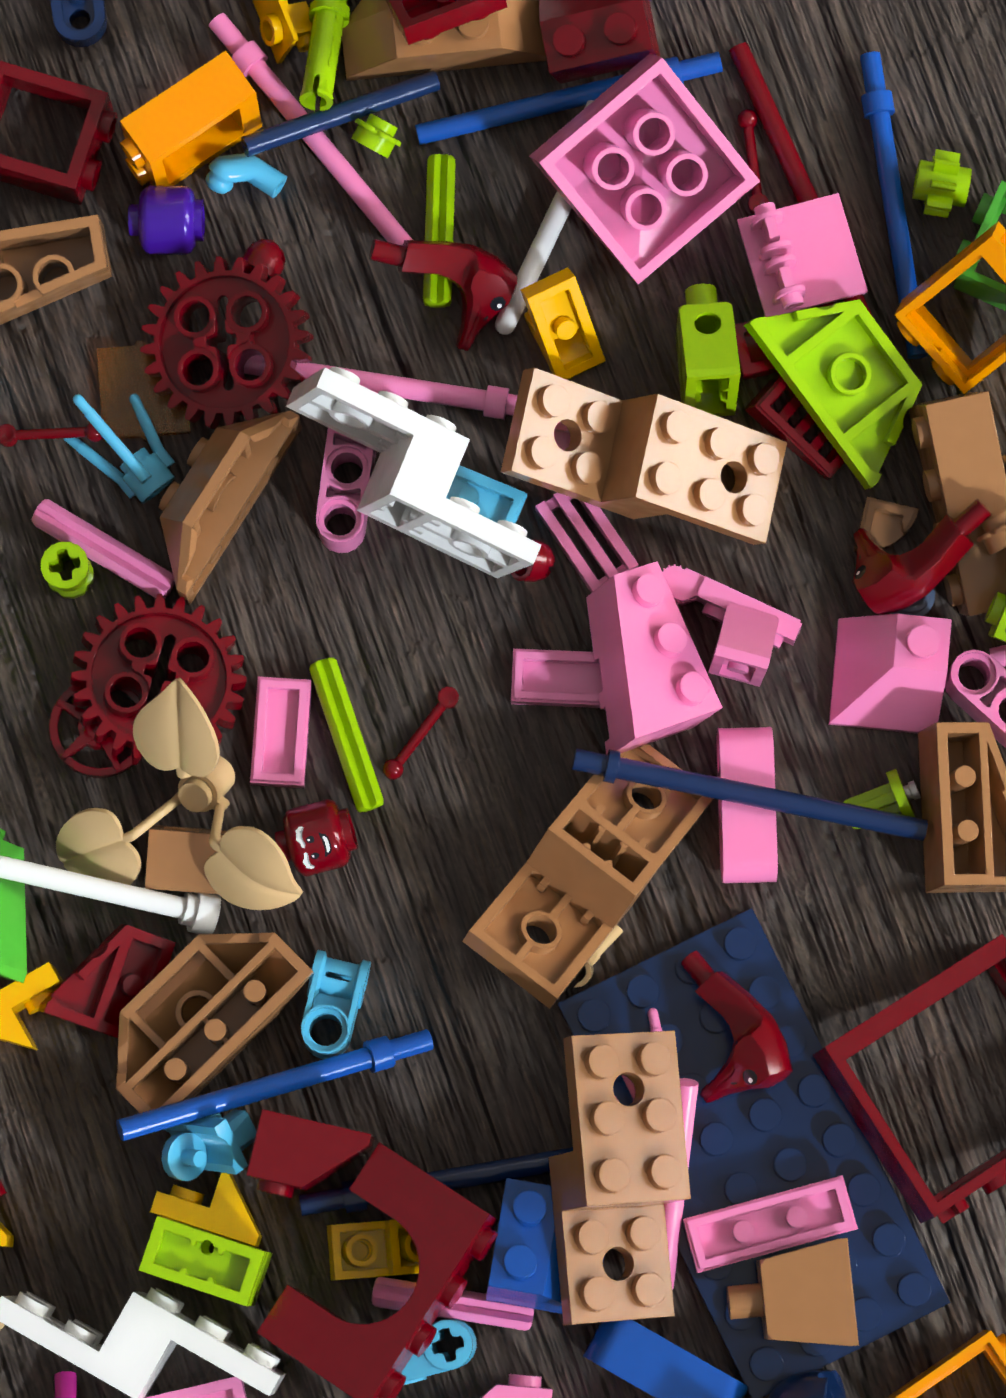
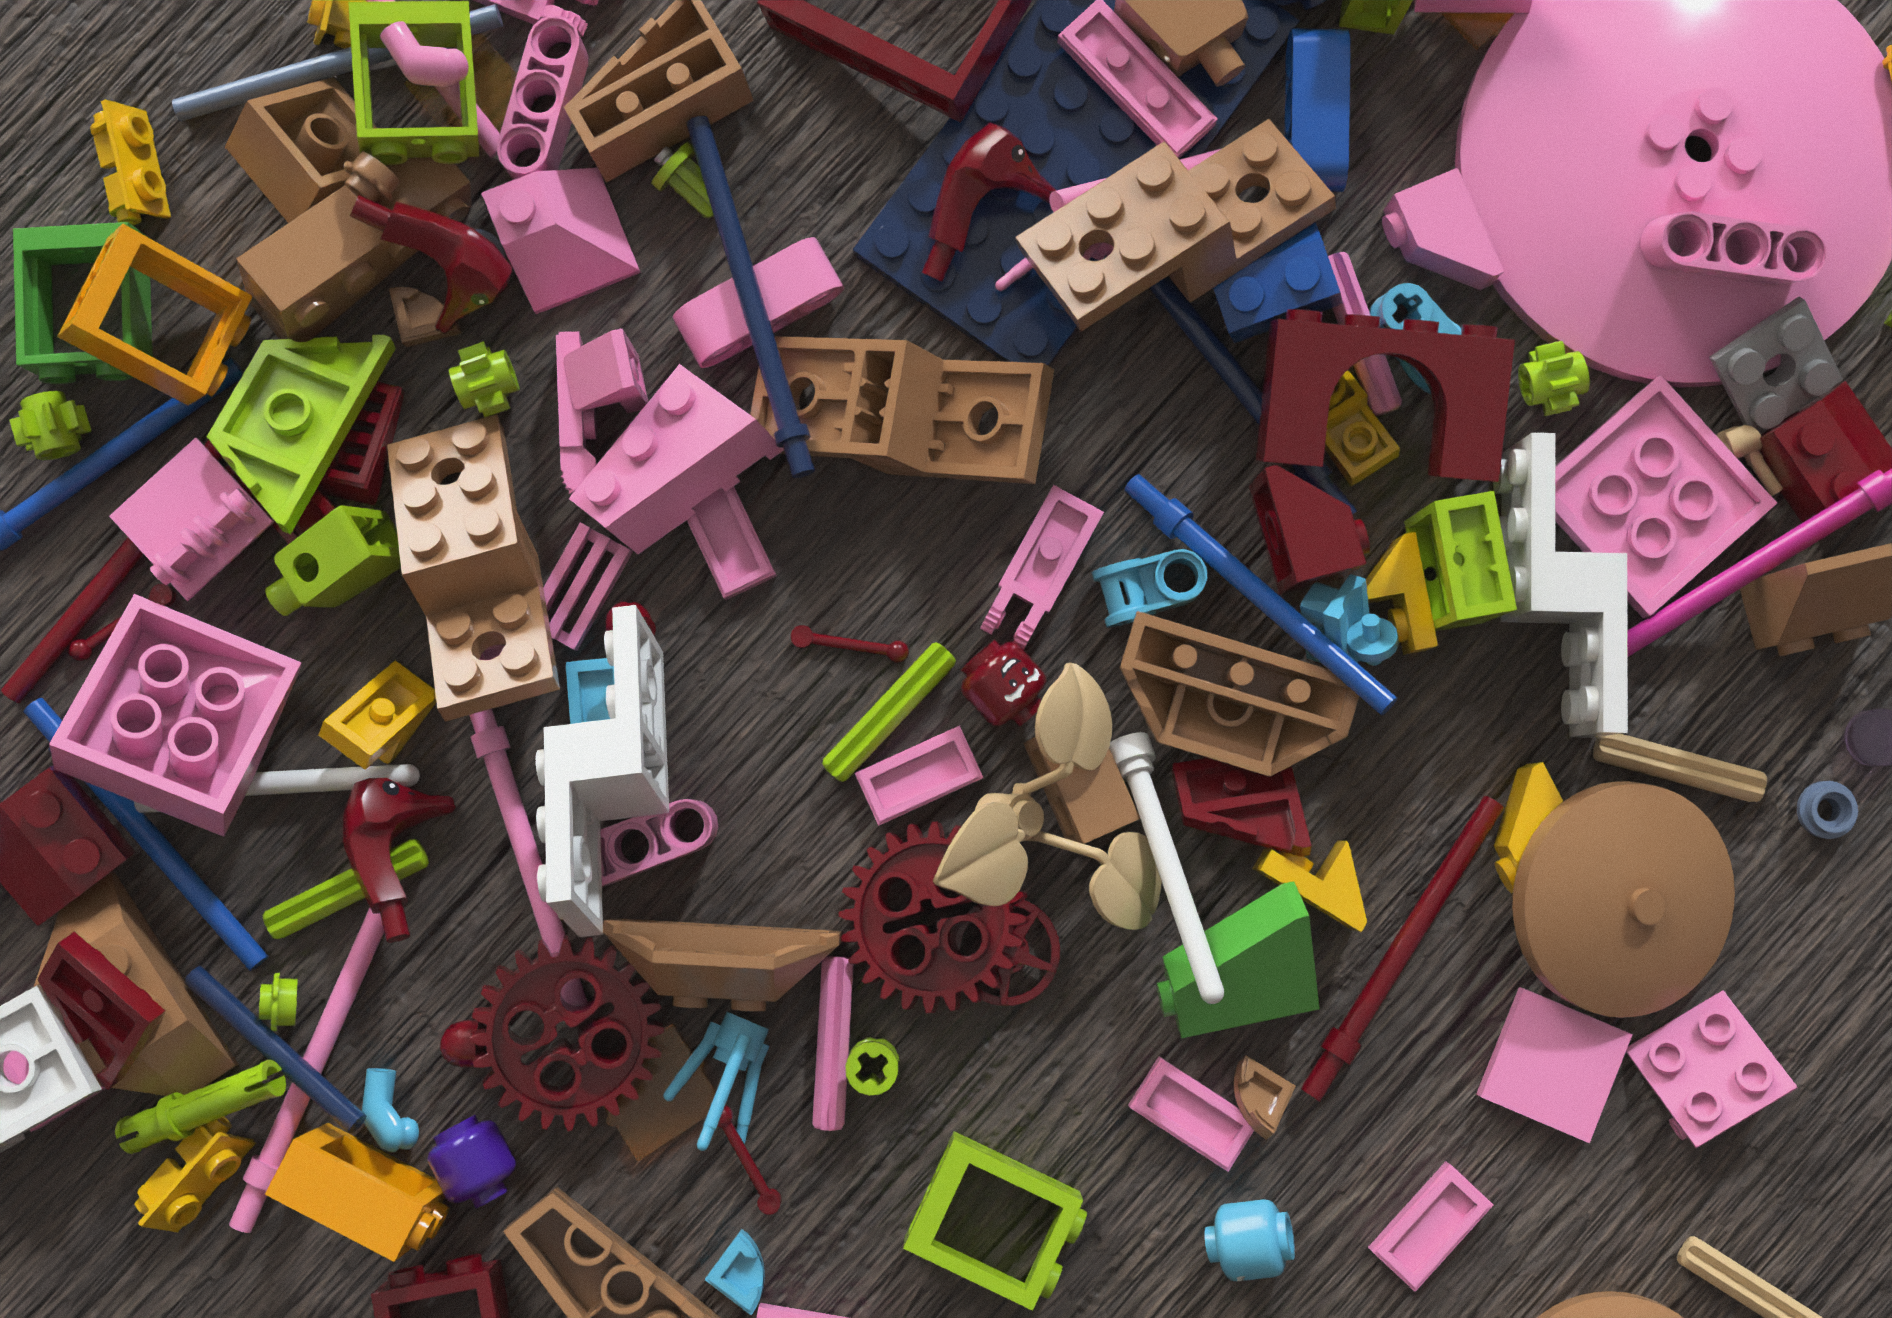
camera: 115 degrees left, 5 degrees up
(401, 928) = (1044, 560): none -> bright pink hinge
(798, 546) = (484, 379): none -> lime gear

